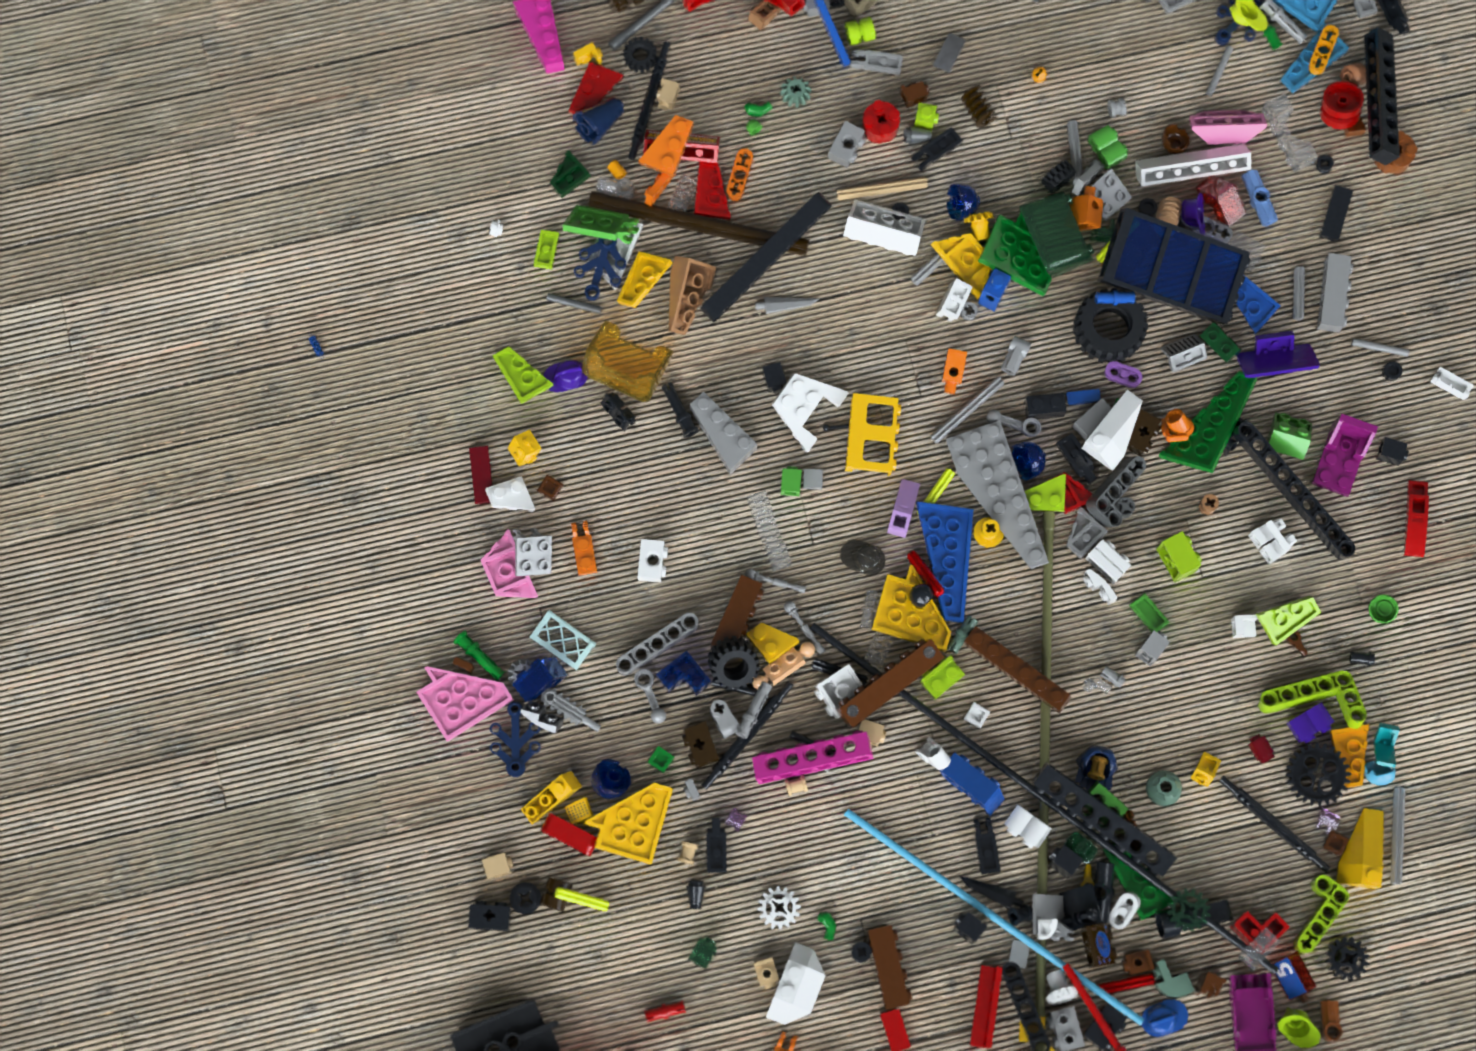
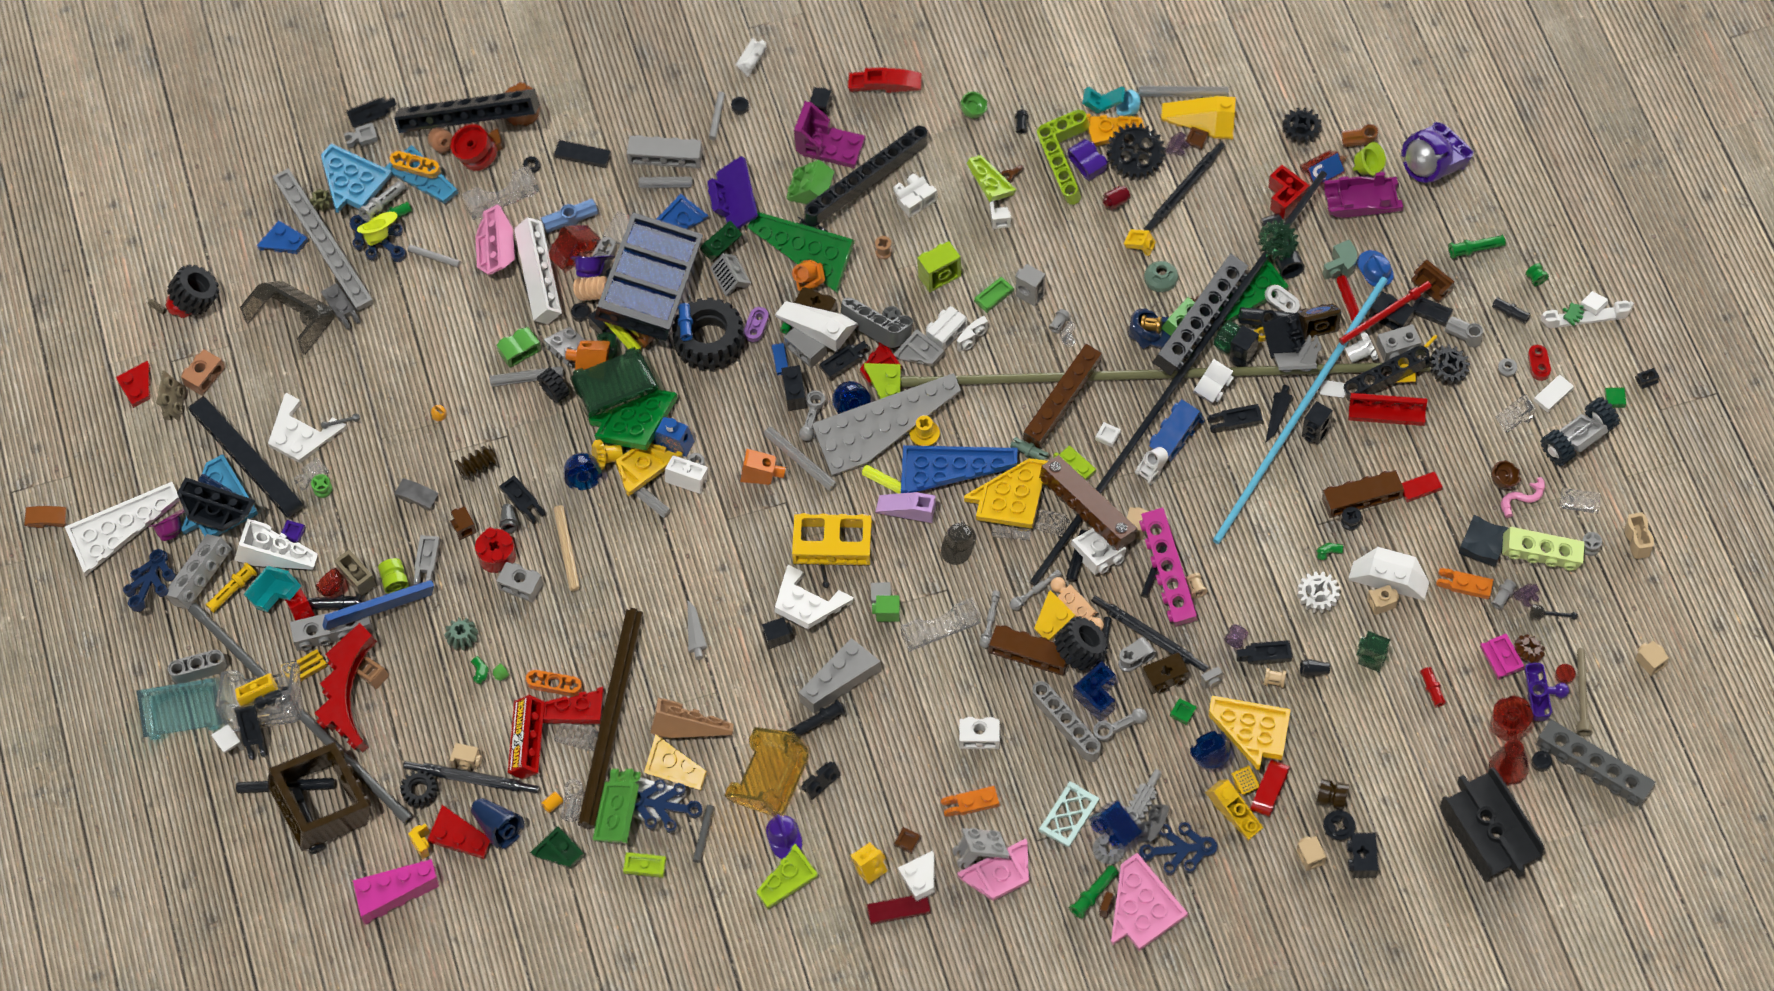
camera: 90 degrees left, 15 degrees down
(495, 228) = (621, 919): white plate -> none
(581, 898) = (1334, 766): neon yellow axle -> none
(653, 192) = (567, 753): orange hinge -> none
(668, 147) = (533, 736): orange wedge -> none
(756, 705) = (1133, 628): light grey pin -> none
(766, 257) = (649, 644): black beam -> none
(878, 227) = (610, 540): white slope -> none
(901, 207) = (591, 531): black tile -> none
(921, 595) = (996, 481): black piece -> none
(925, 573) = (972, 482): red axle -> none
(926, 116) = (488, 510): lime brick -> none
(1017, 351) = (737, 415): light grey piece -> none
(1018, 915) = (1298, 381): black bush -> none
(1046, 928) = (1310, 354): white tile -> none
(1087, 176) = (552, 358): light grey hinge -> none
(1116, 107) = (476, 340): light grey wheel -> none
(1146, 962) = (1328, 288): reddish brown brick -> none
(1175, 139) = (509, 288): reddish brown hair -> none
(1208, 983) = (1341, 228): reddish brown hinge -> none
(1259, 949) = (1306, 183): clear plate -> none
(1318, 918) = (1287, 155): lime beam -> none

